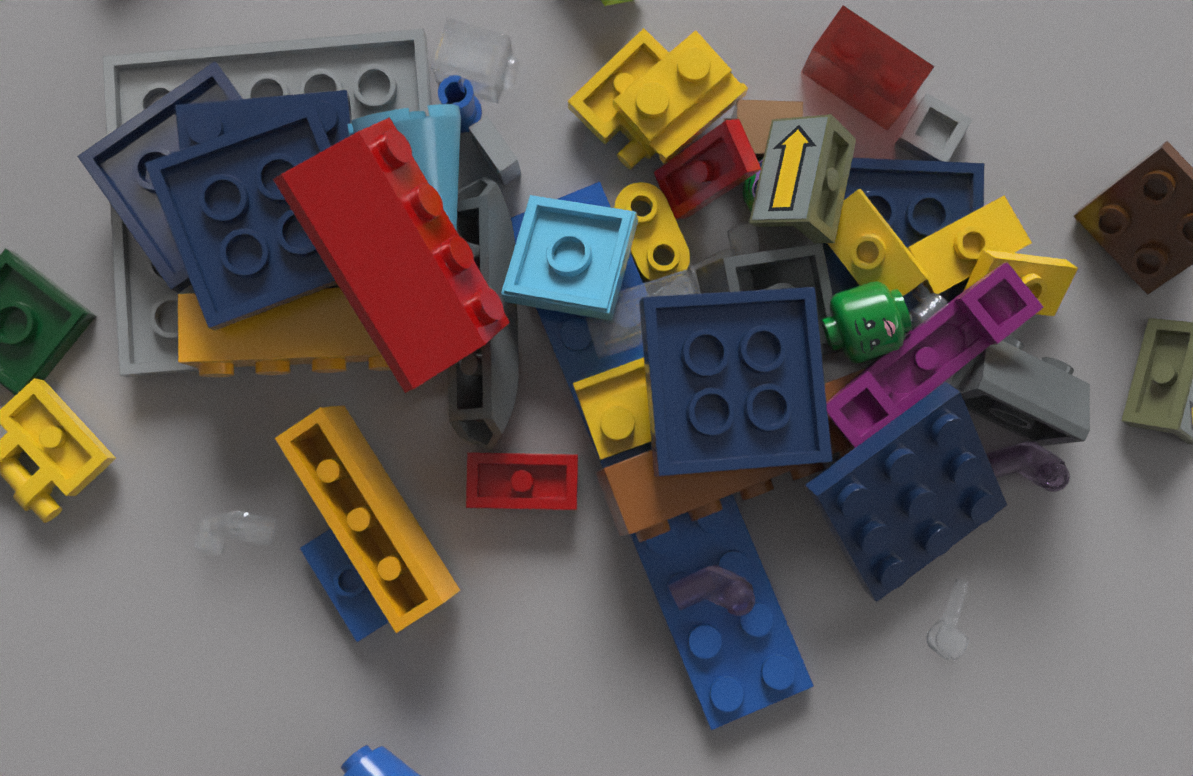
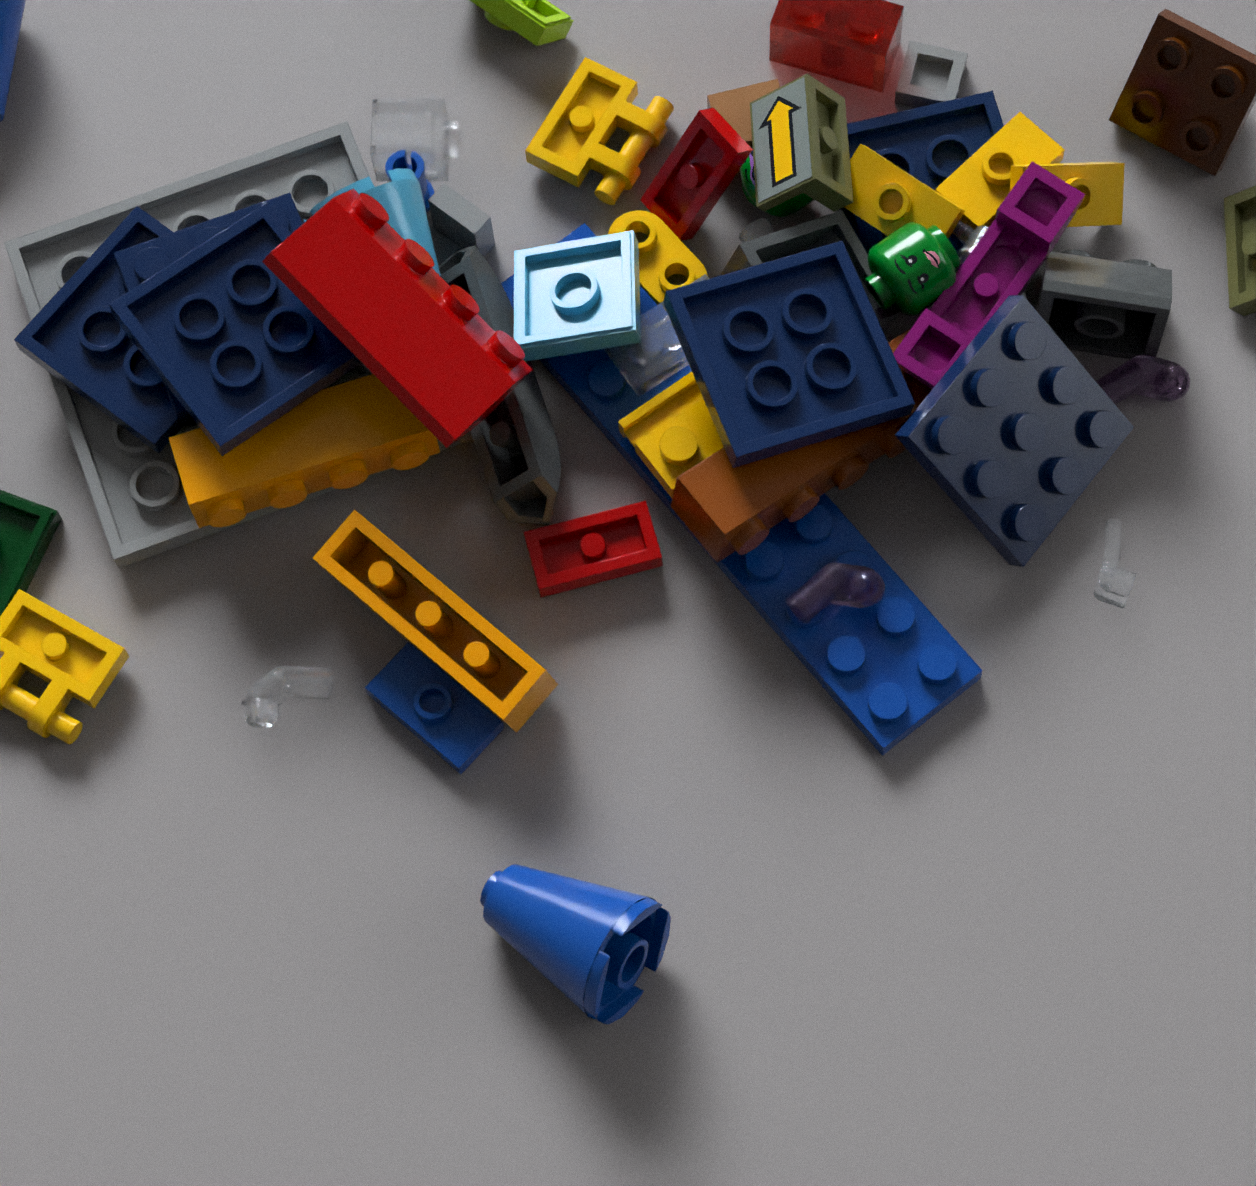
camera: 10 degrees left, 15 degrees down
(679, 97) = (644, 111): yellow plate -> none

